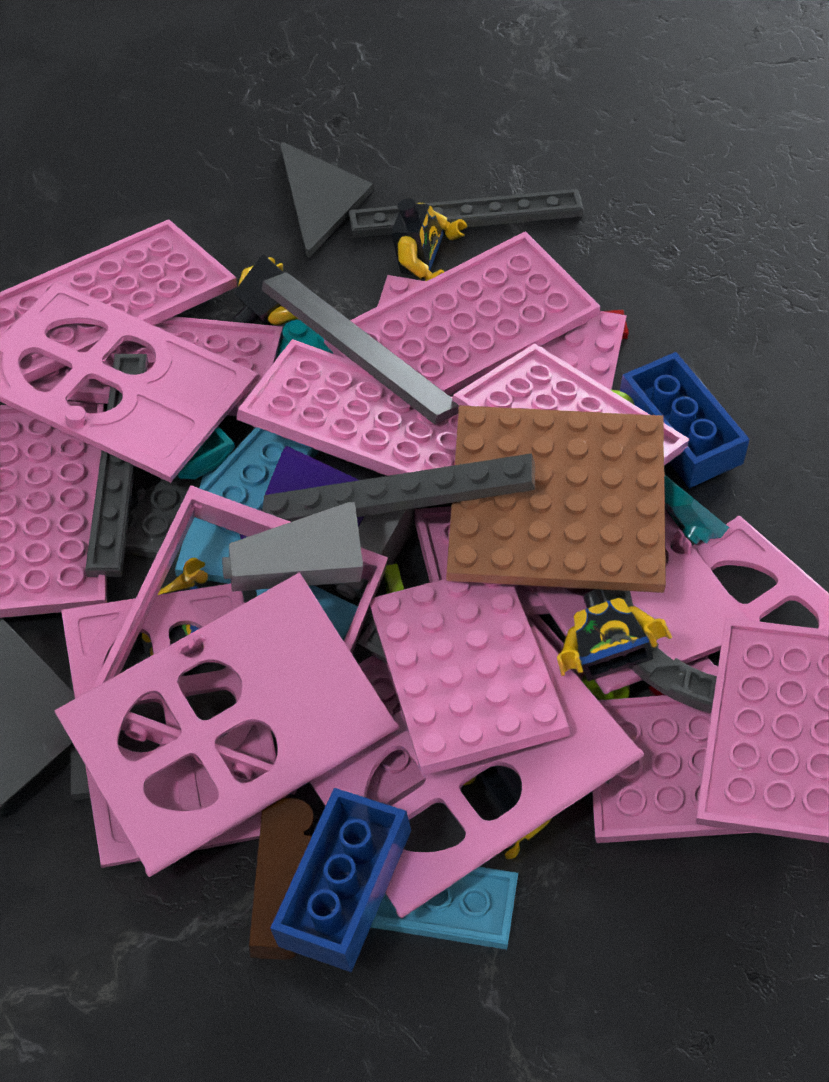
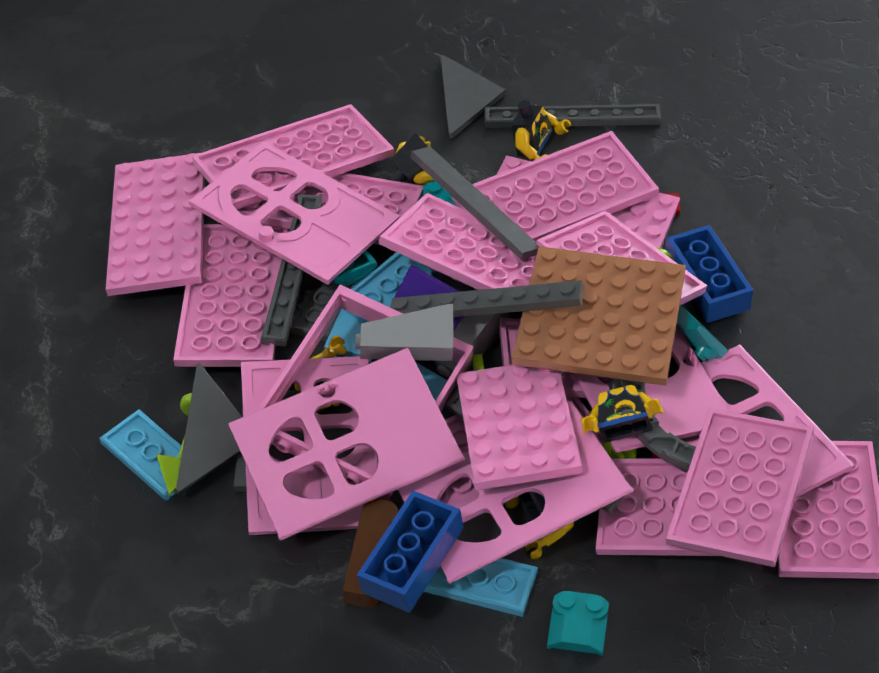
camera: 10 degrees right, 5 degrees down
(587, 952) = (578, 622): none -> teal slope

